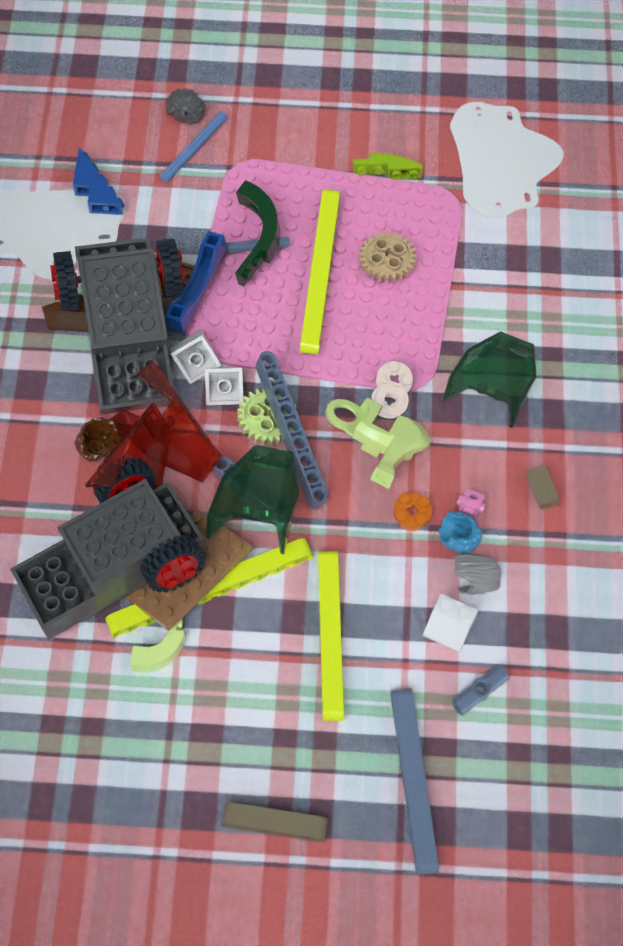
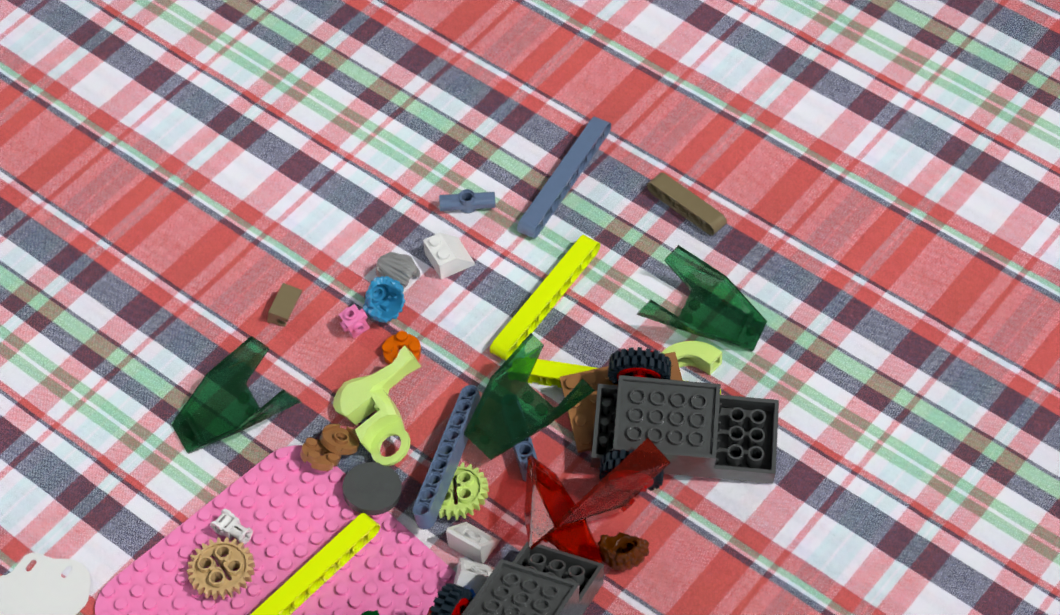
camera: 140 degrees left, 10 degrees down
(167, 700) = (713, 305): none -> clear green windscreen
(332, 378) = (372, 488): none -> dark grey piece
(409, 288) = (229, 525): none -> white connector

